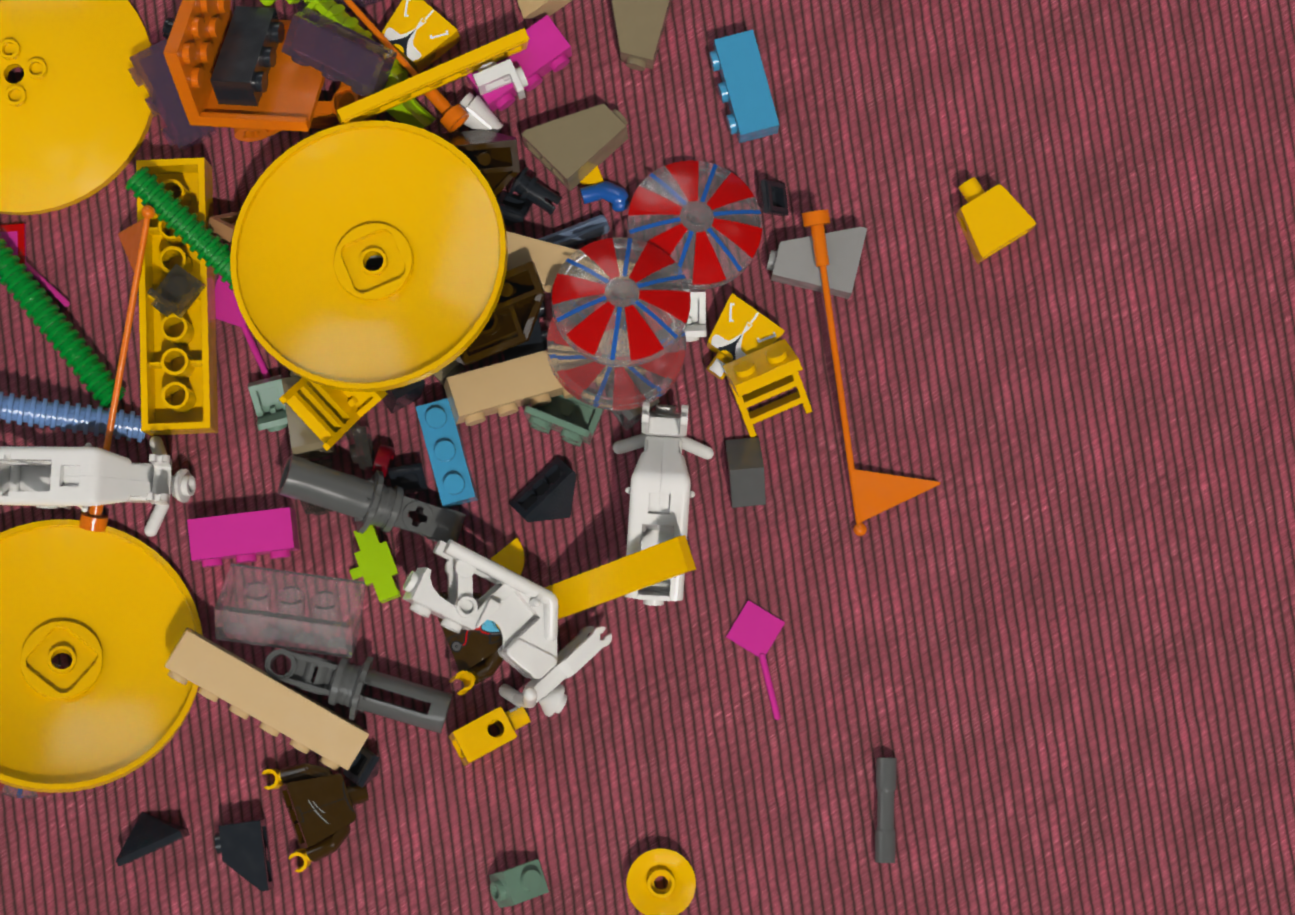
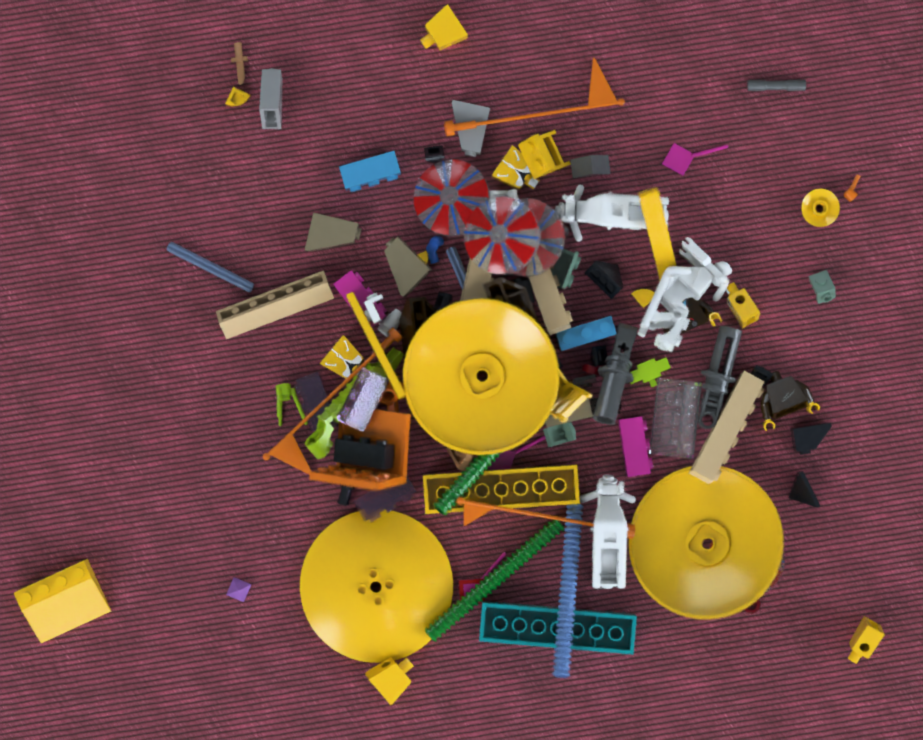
camera: 90 degrees left, 5 degrees up
(176, 292) = (501, 486): clear smoke bracket -> none
(533, 191) = (434, 289): black pin -> none

